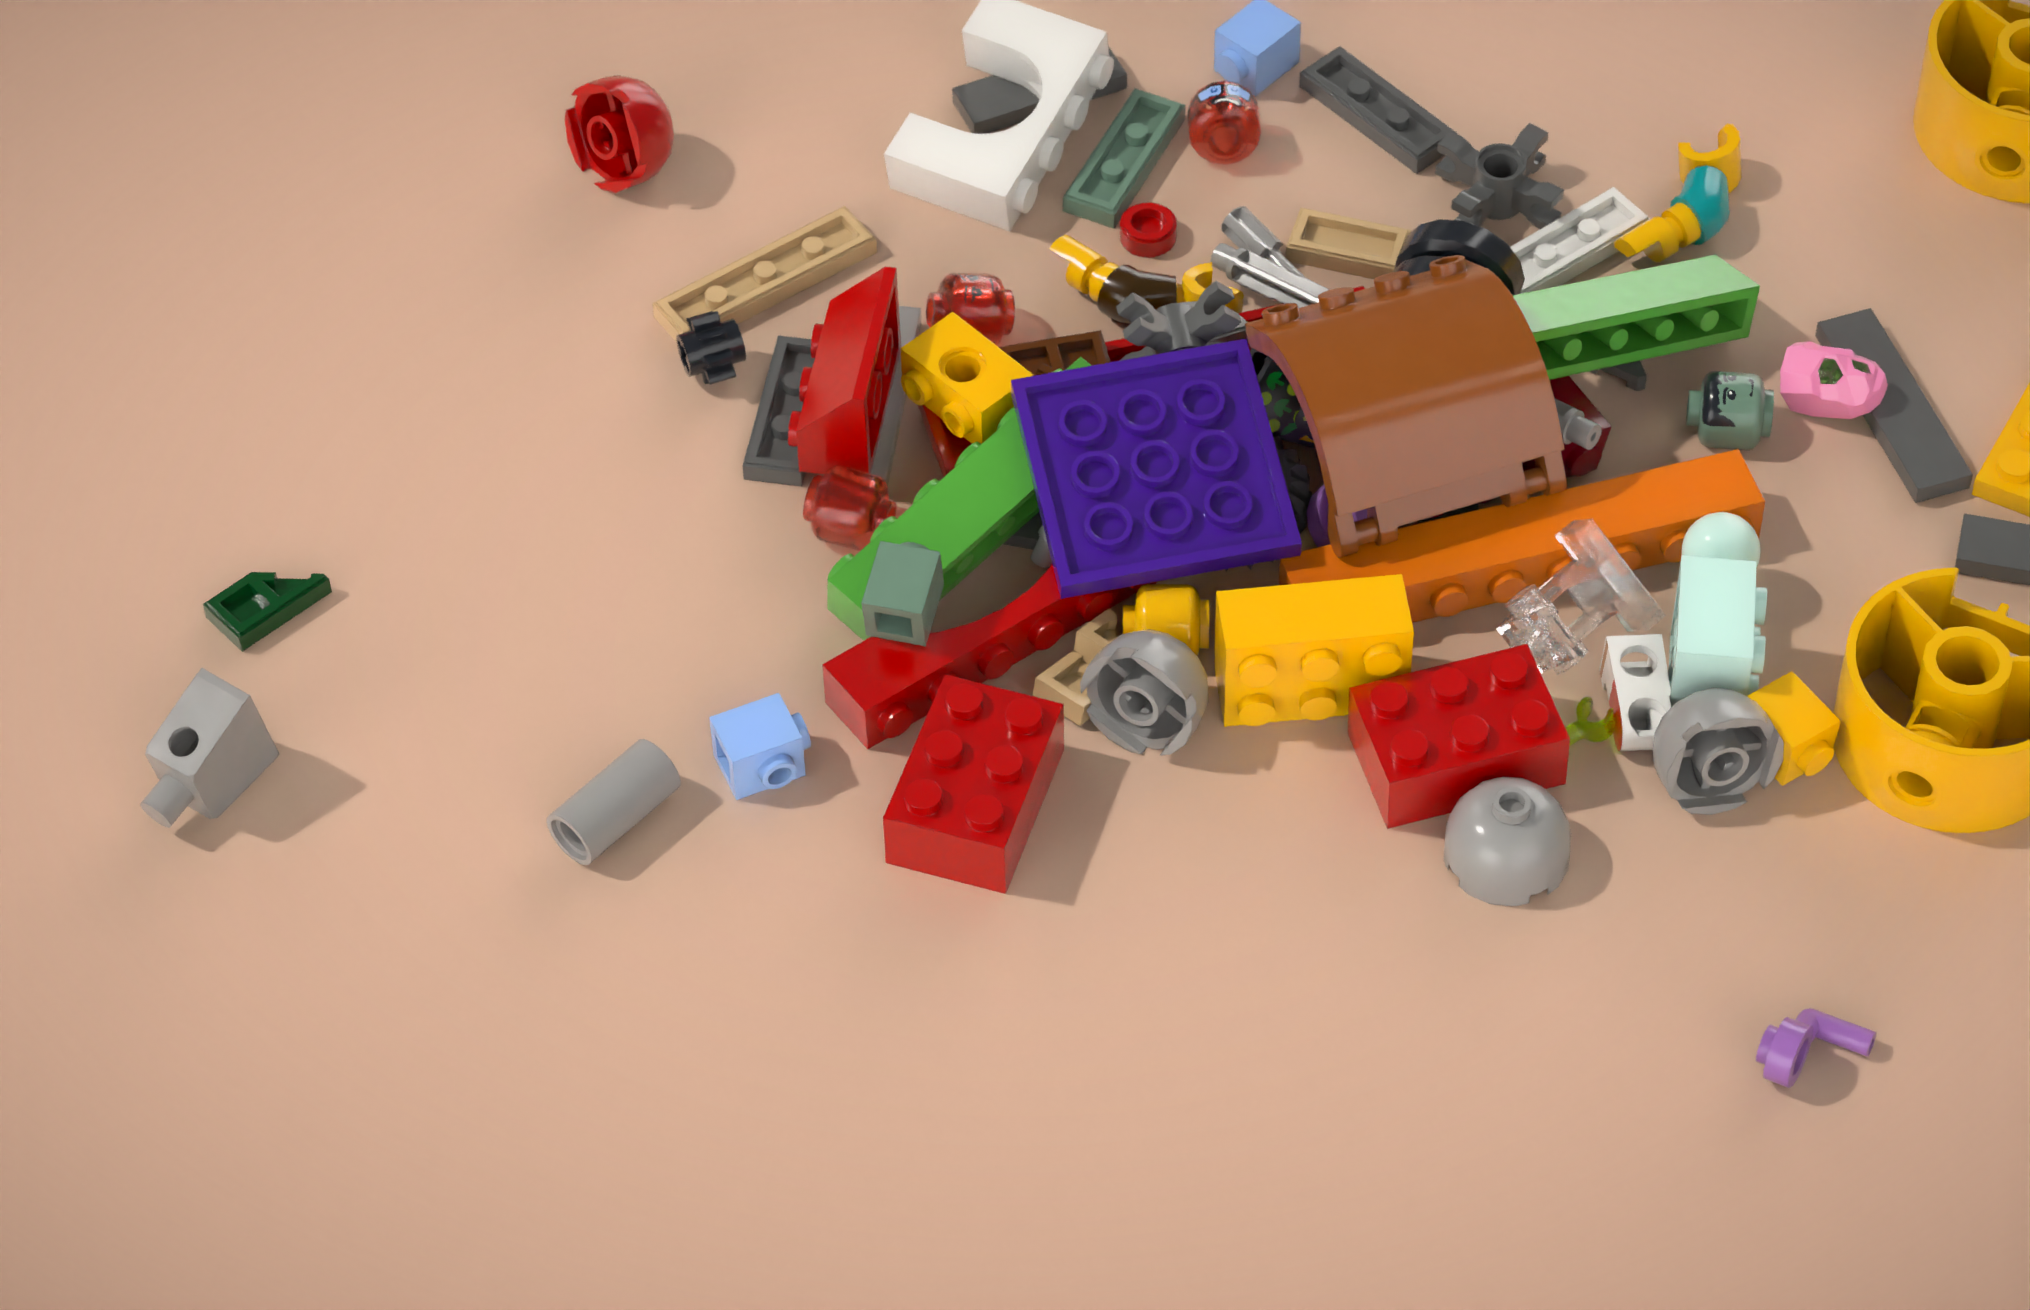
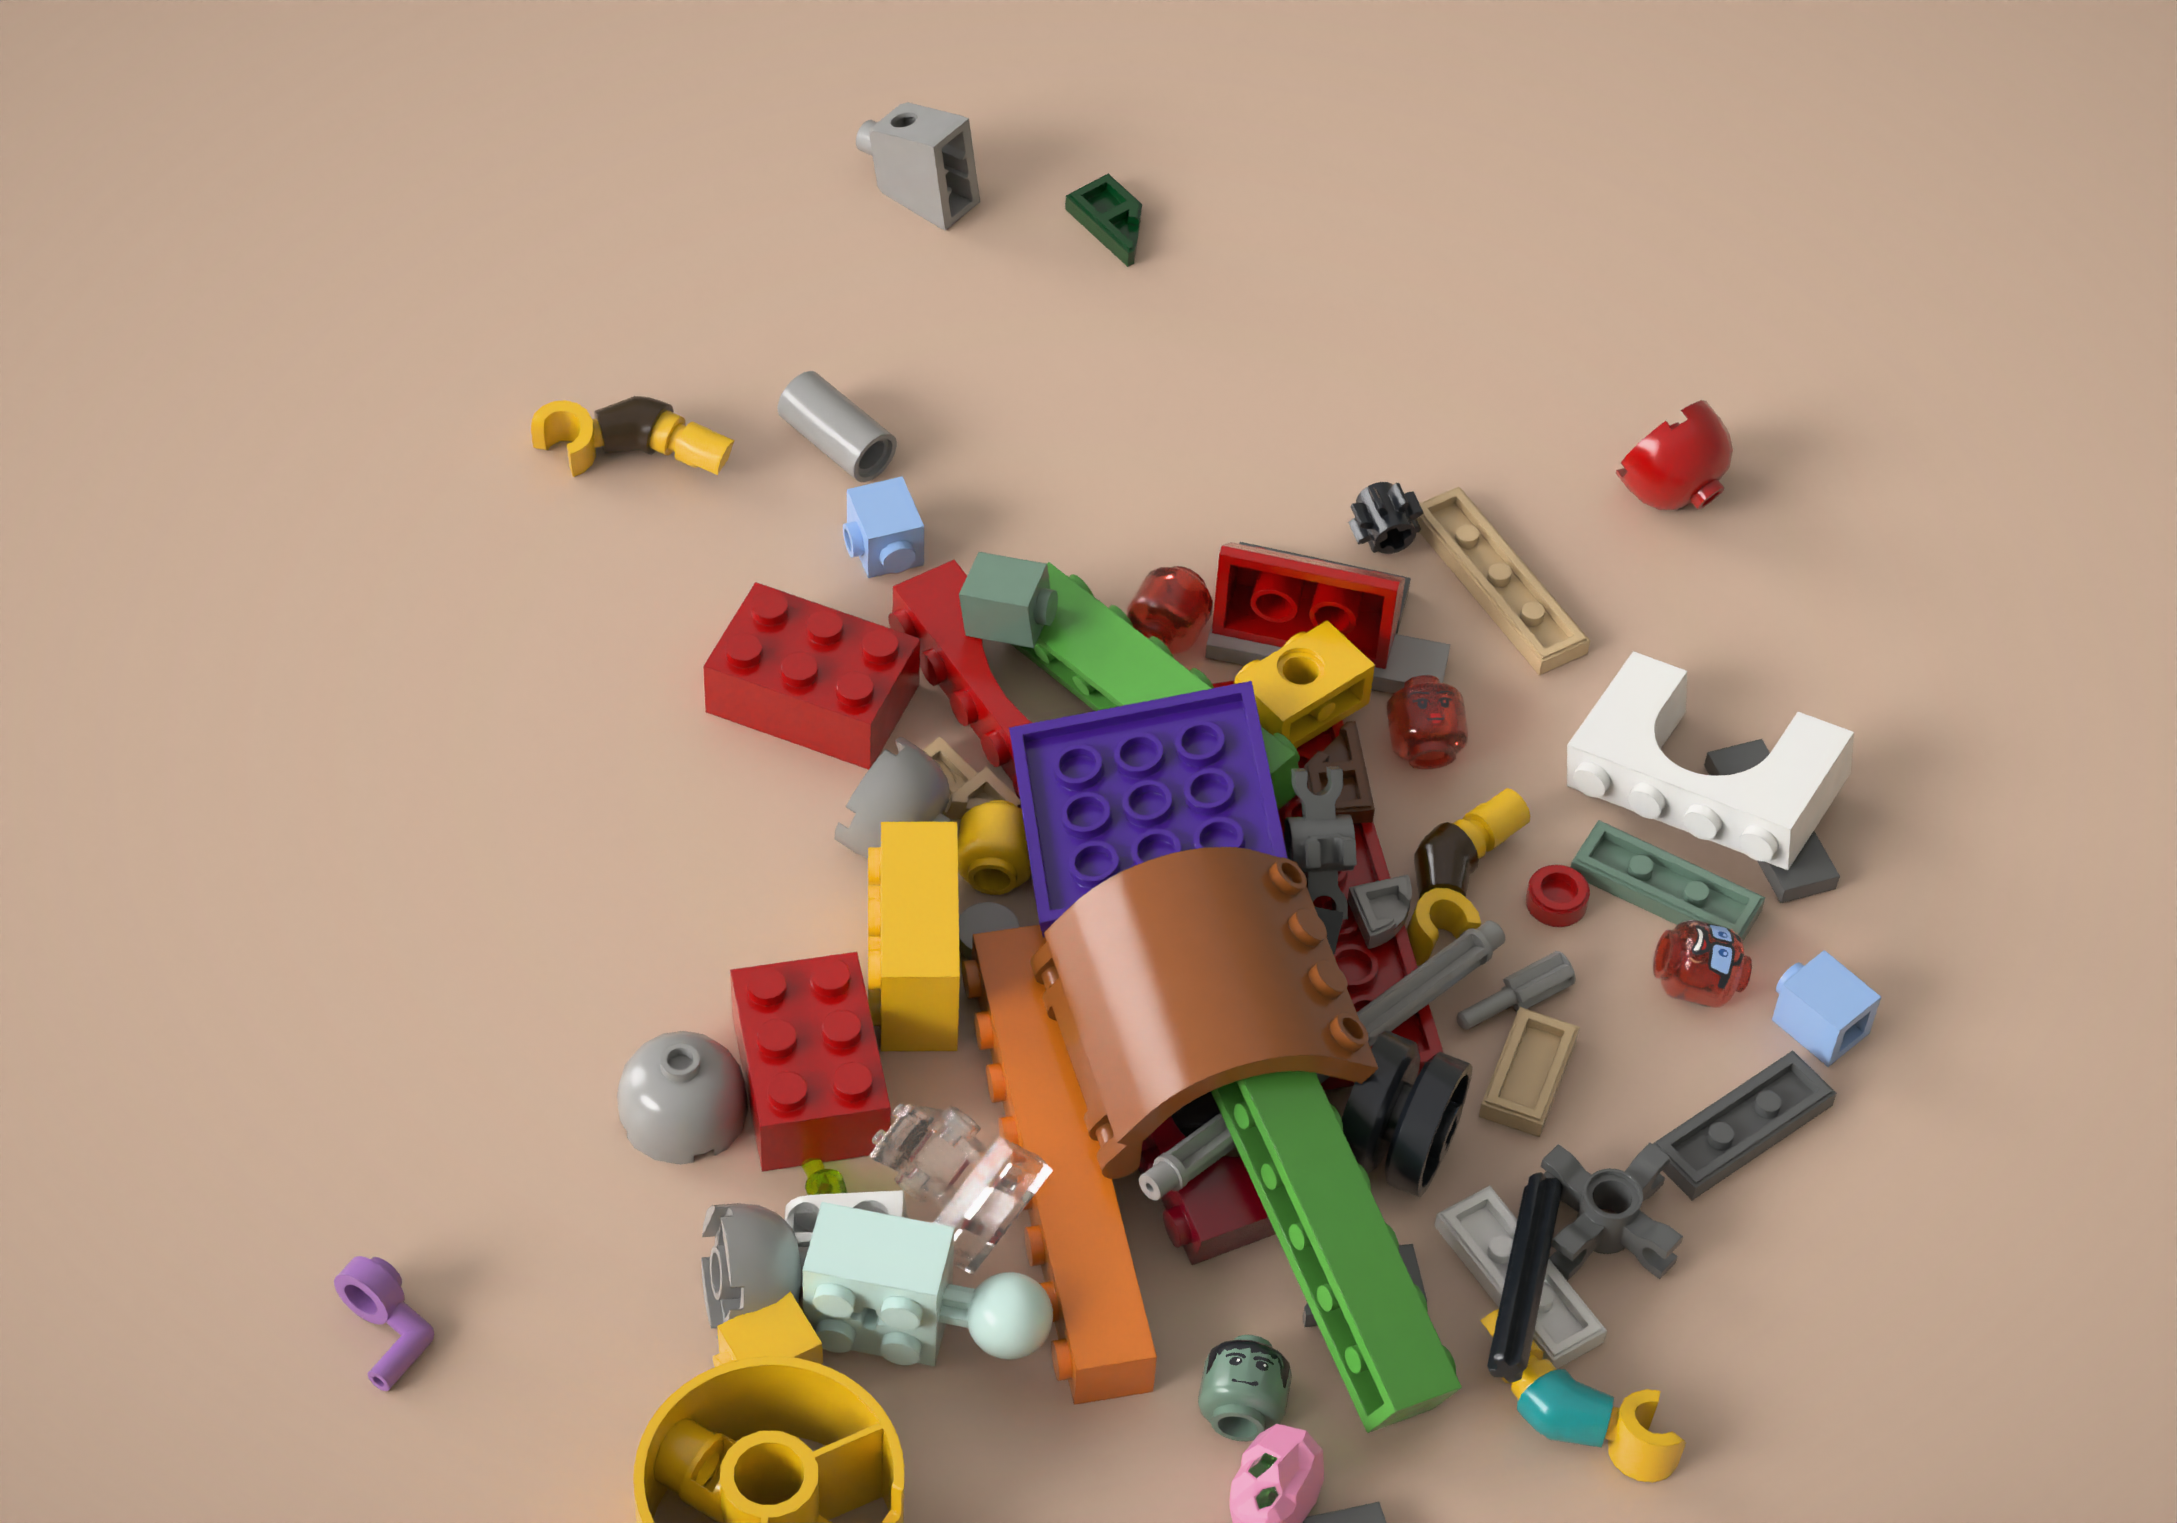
camera: 90 degrees right, 0 degrees up
(625, 989) = (628, 426): none -> yellow piece
(1595, 219) = (1525, 1278): none -> black axle

